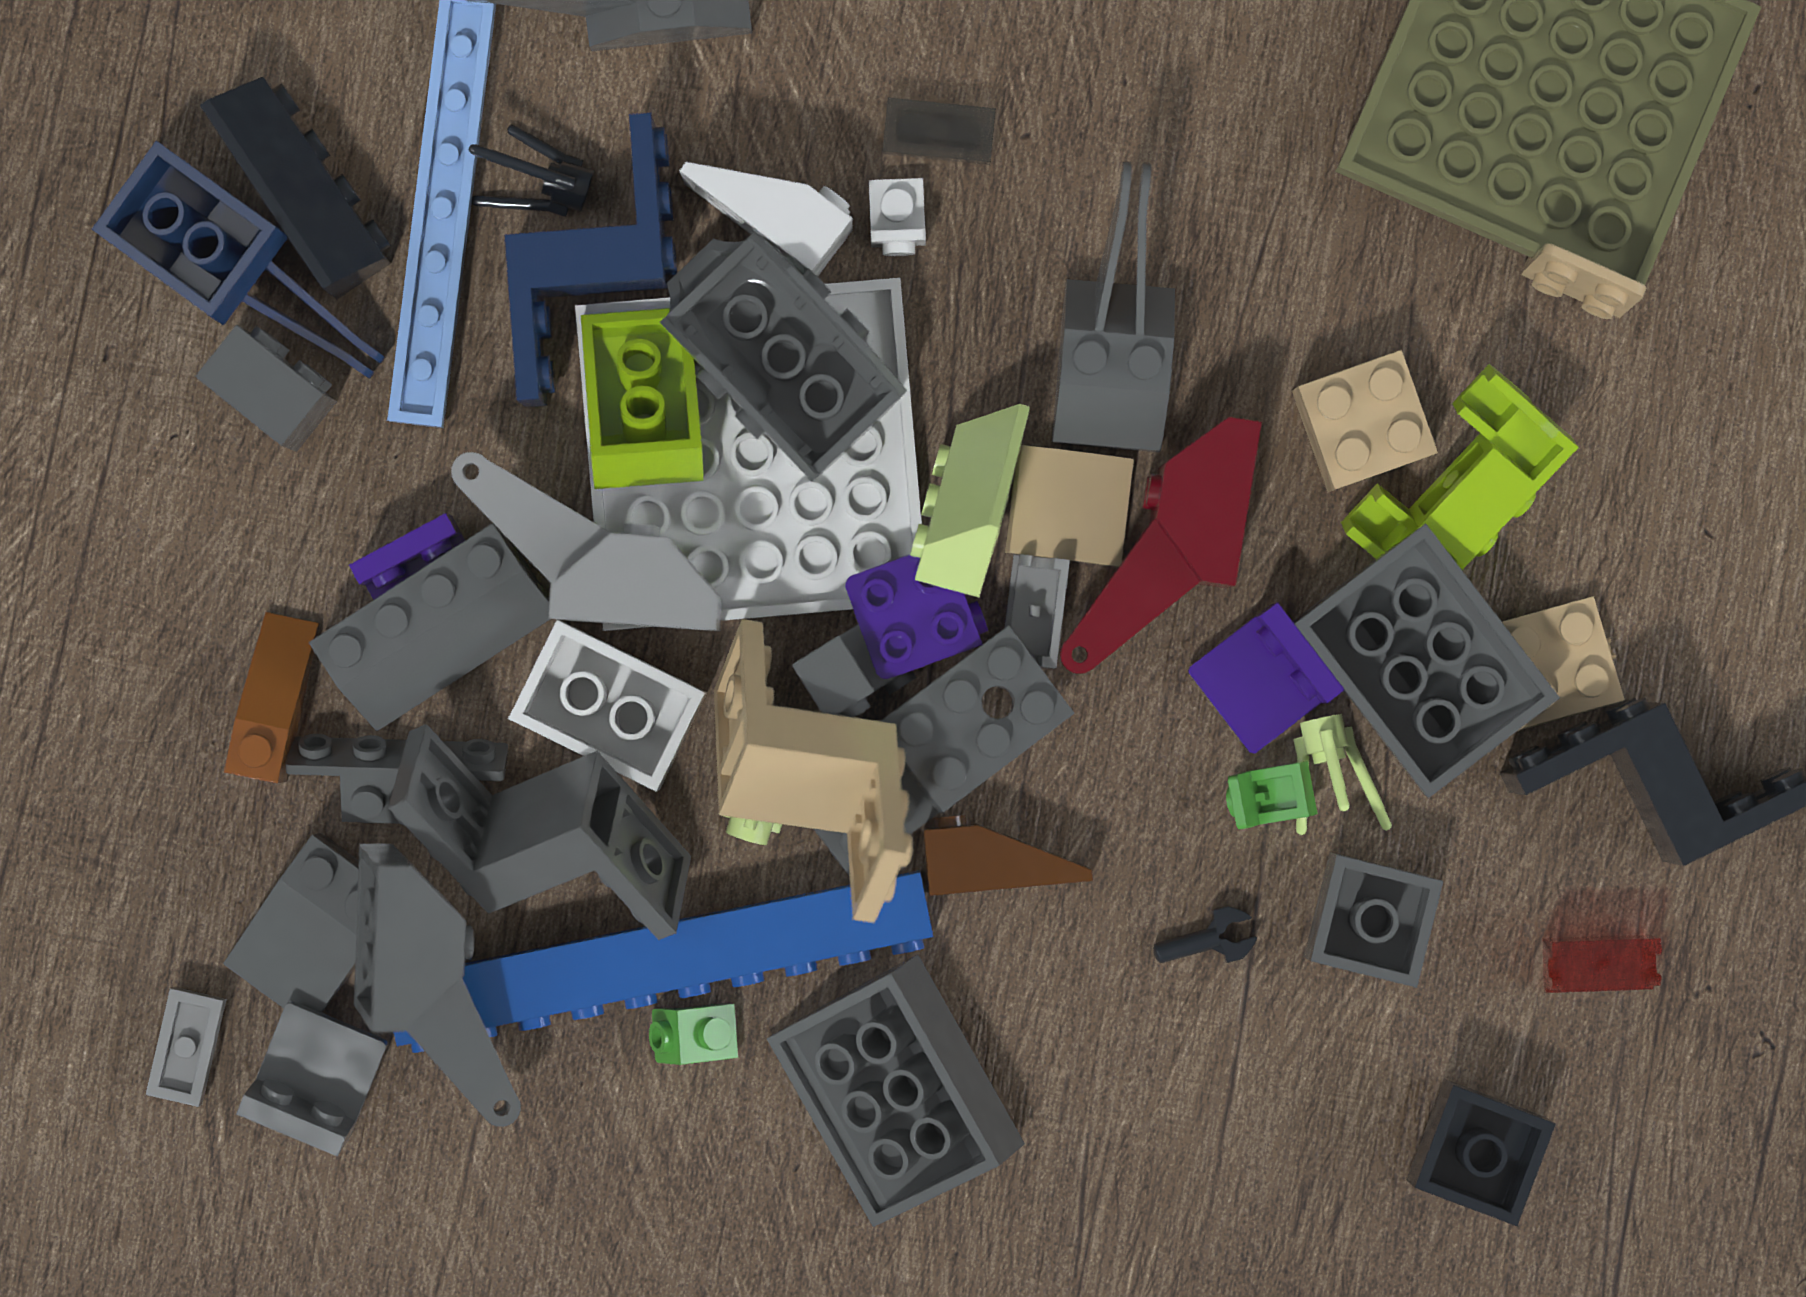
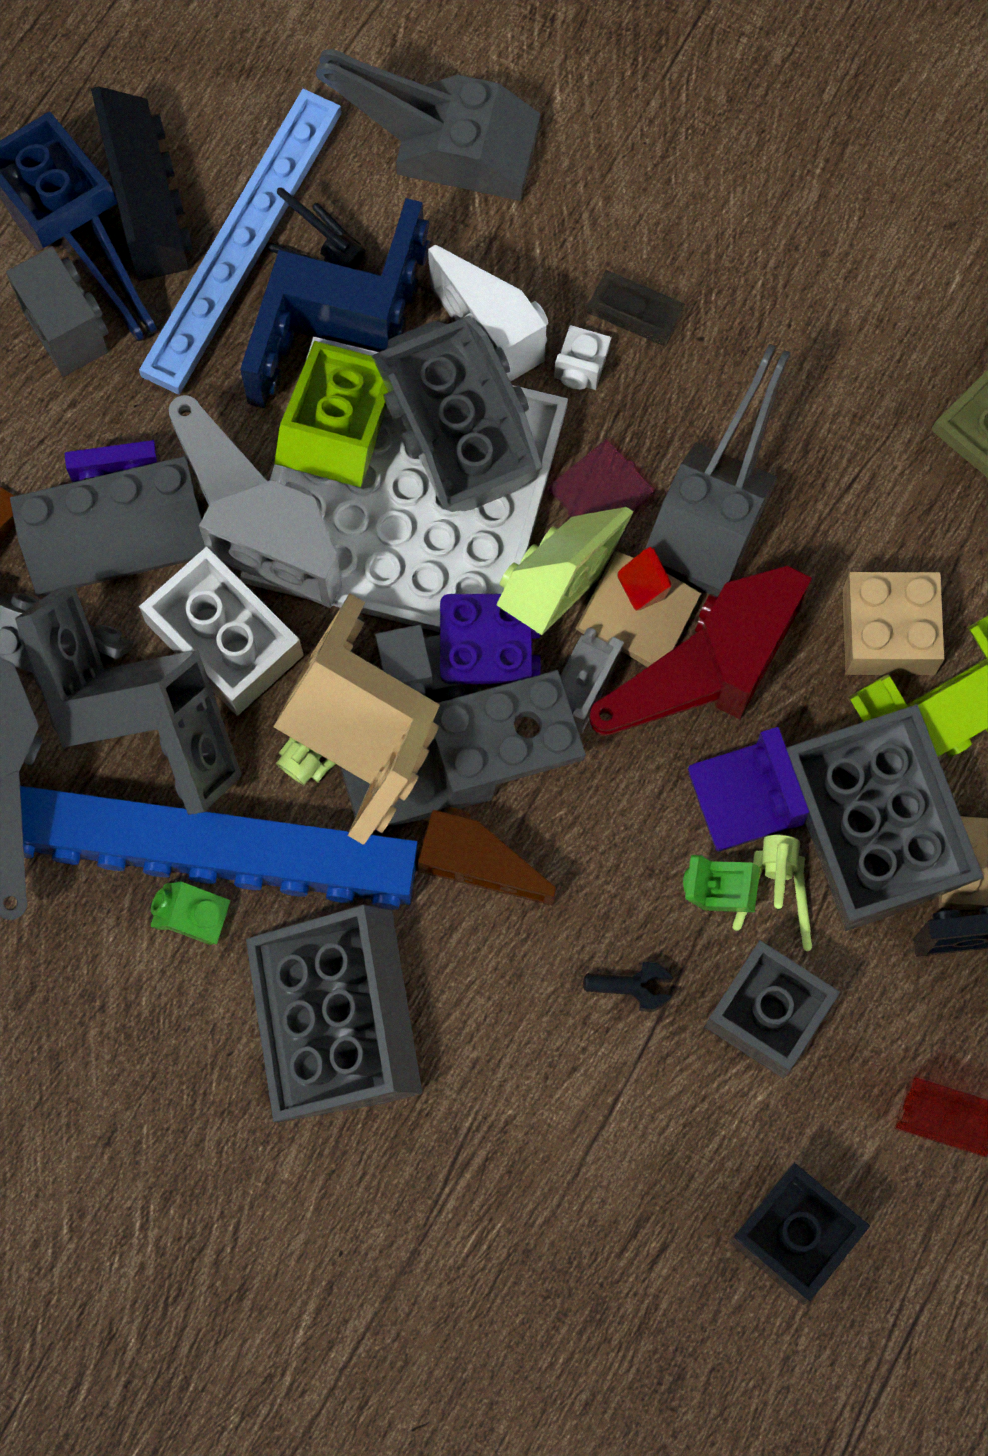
camera: 20 degrees right, 15 degrees down
(974, 366) = (601, 483): none -> clear pink piece
(1067, 476) = (644, 580): none -> red slope

